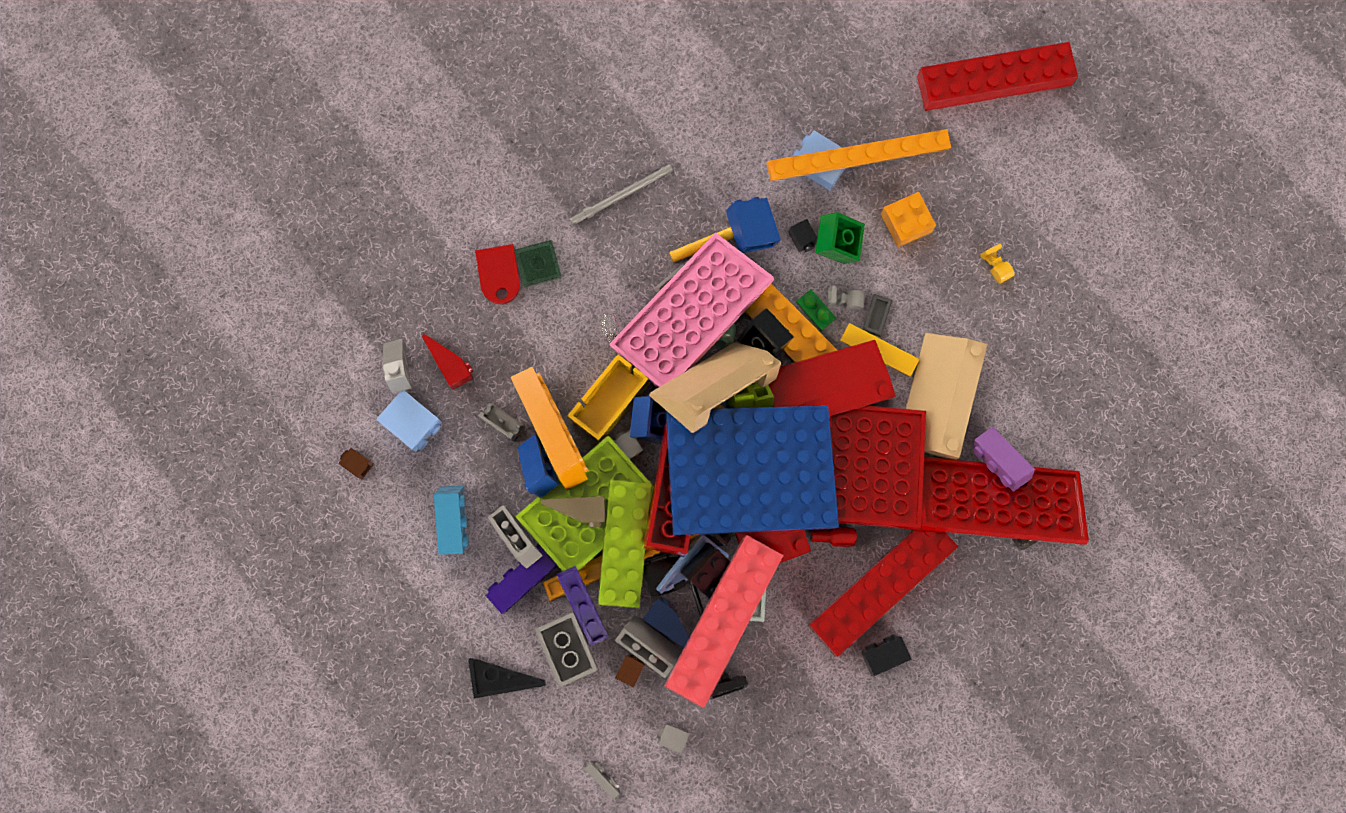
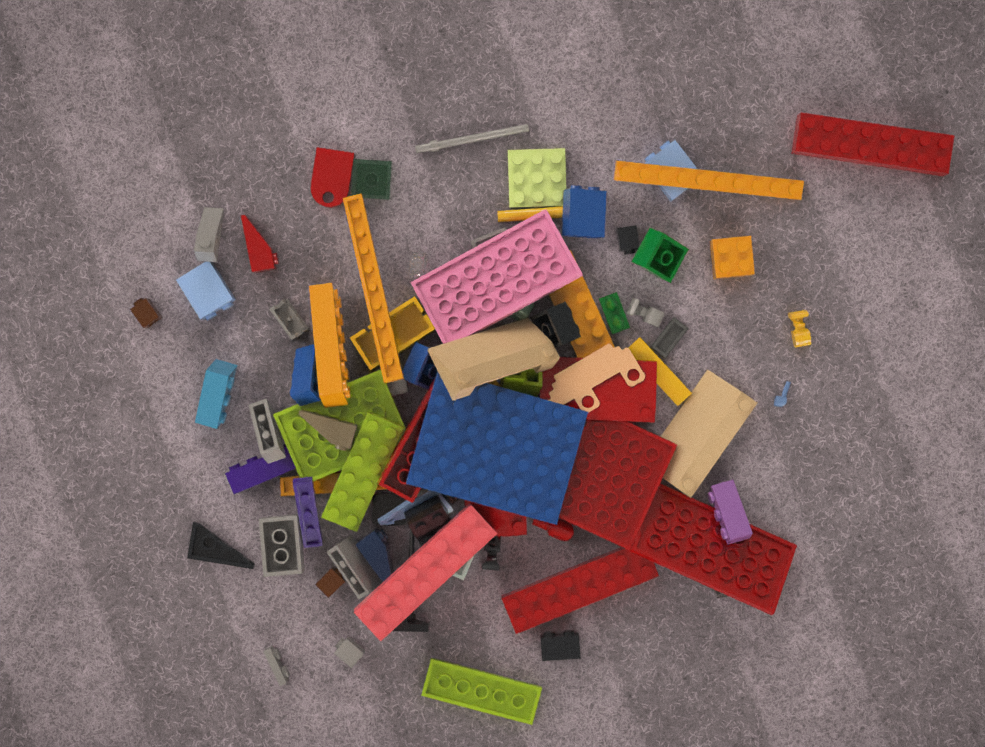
camera: 20 degrees right, 10 degrees up
(576, 361) = (373, 288): none -> light orange plate
(695, 210) = (536, 177): none -> yellowish green plate
(781, 578) = (492, 549): none -> black leg
(810, 374) = (590, 371): none -> light nougat piece
(823, 731) = (481, 691): none -> lime plate
(1006, 338) = (781, 400): none -> medium blue hand

